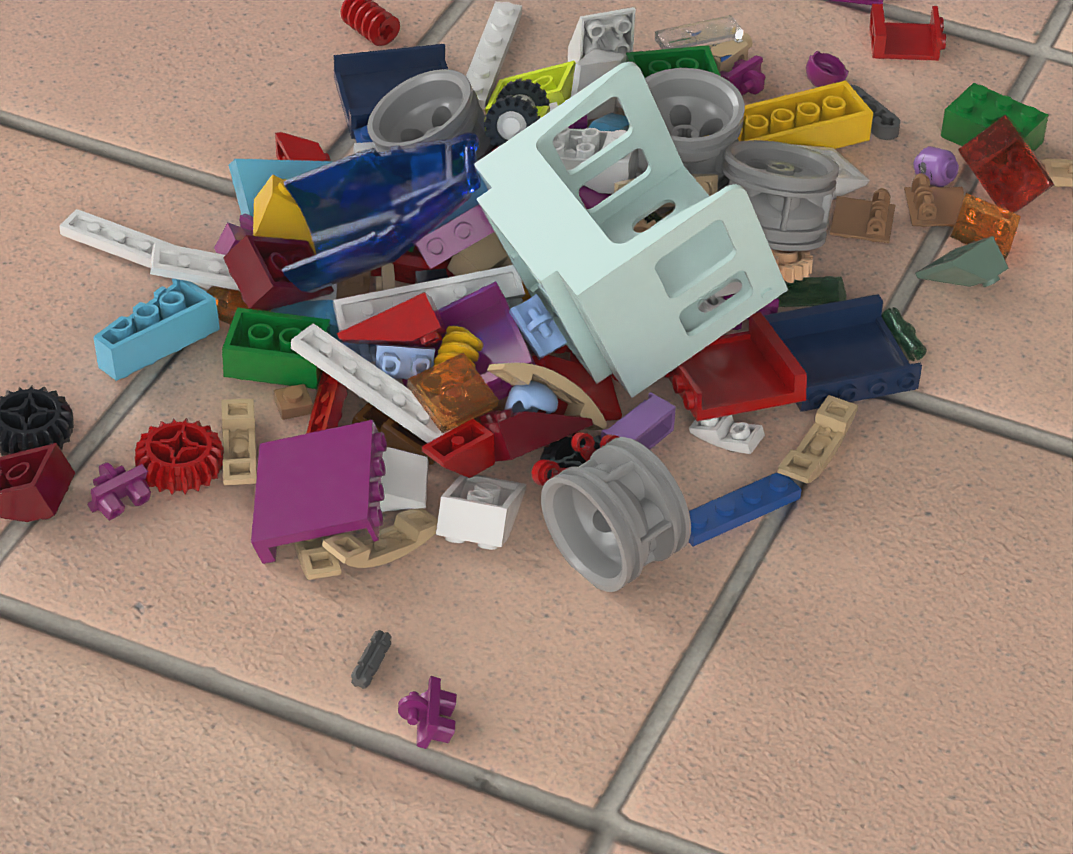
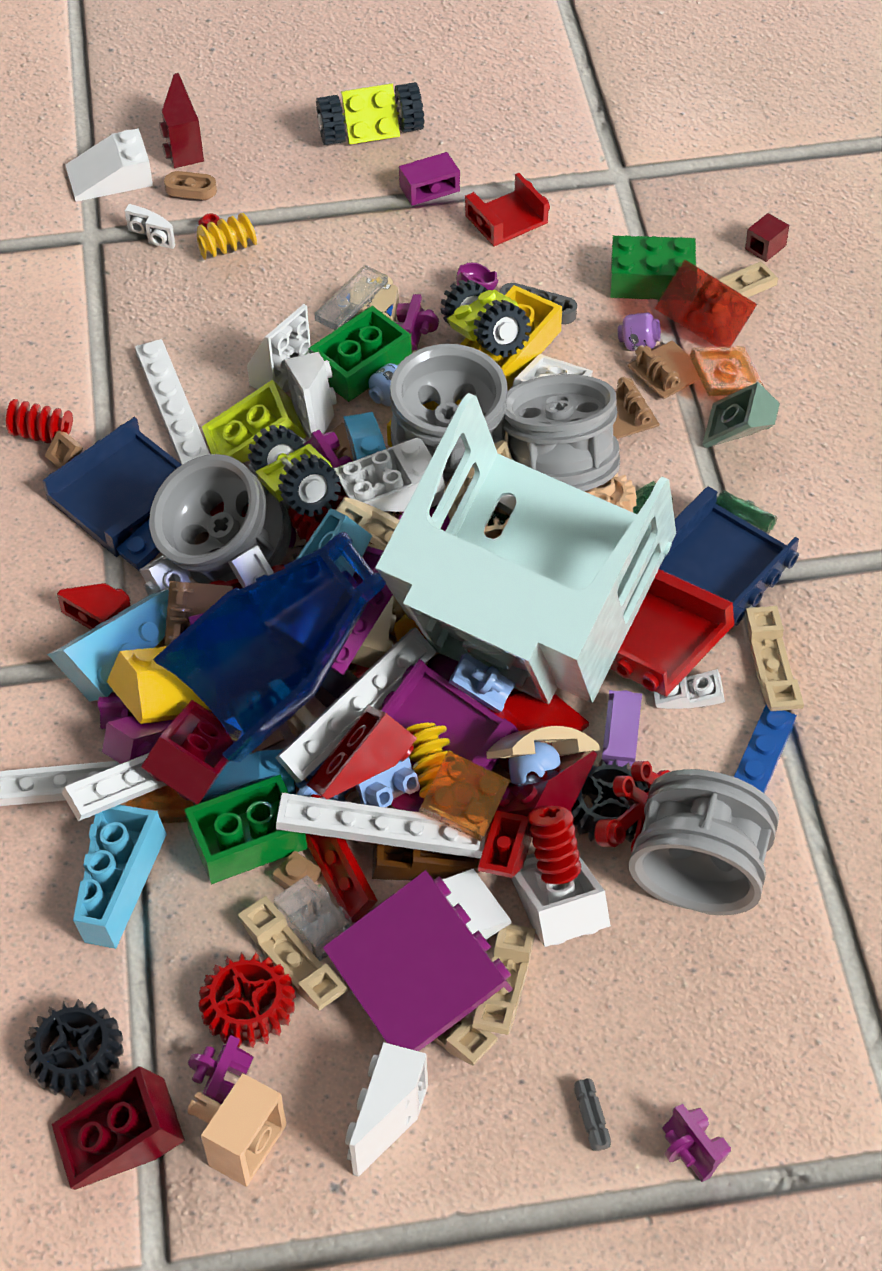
camera: 30 degrees left, 10 degrees up
(98, 524) = (240, 1128): none -> light nougat brick
(213, 564) = (388, 1104): none -> white slope
(276, 419) = (312, 915): none -> clear brick
(372, 42) = (63, 449): none -> medium nougat plate
(498, 459) = (555, 844): none -> red piece
(793, 90) = (486, 317): none -> plate

